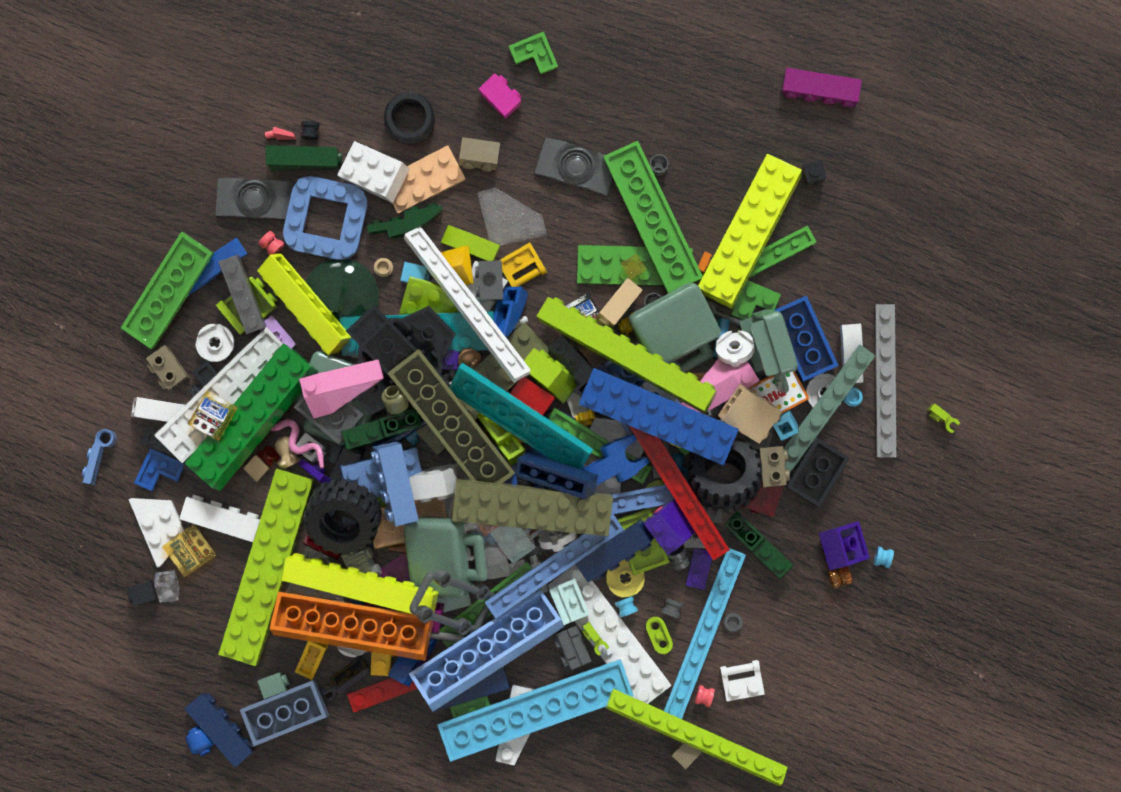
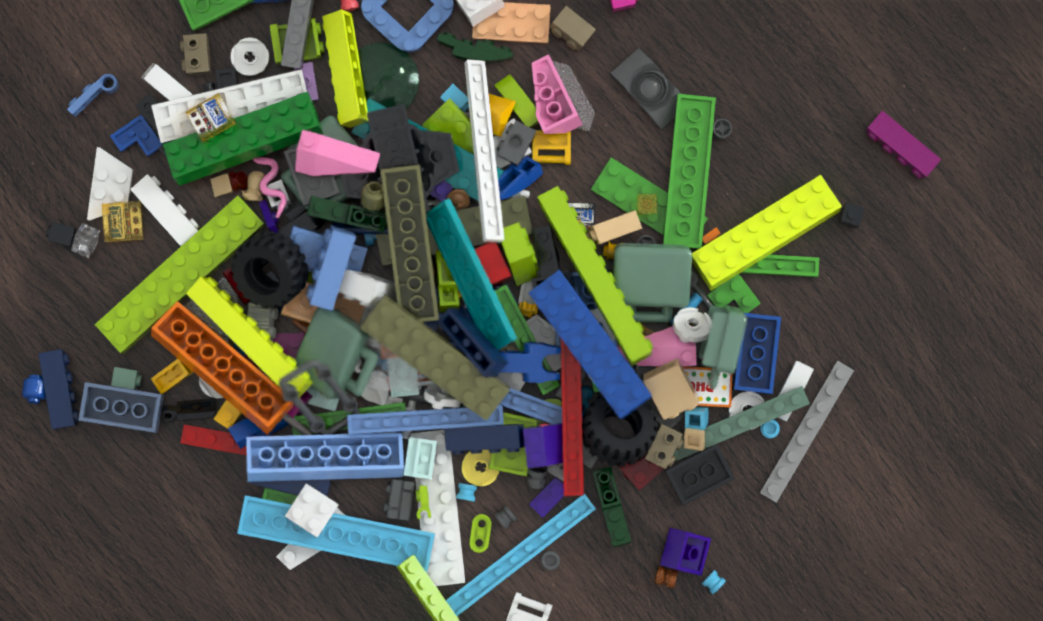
camera: 30 degrees right, 0 degrees up
(383, 267) = (432, 77): tan plate -> none
(502, 228) = (553, 105): none -> bright pink wedge
(503, 703) = (311, 510): none -> white plate
(704, 696) = (488, 608): coral wheel -> none
(795, 444) = (694, 439): none -> tan plate
(939, 414) = (835, 488): lime plate -> none

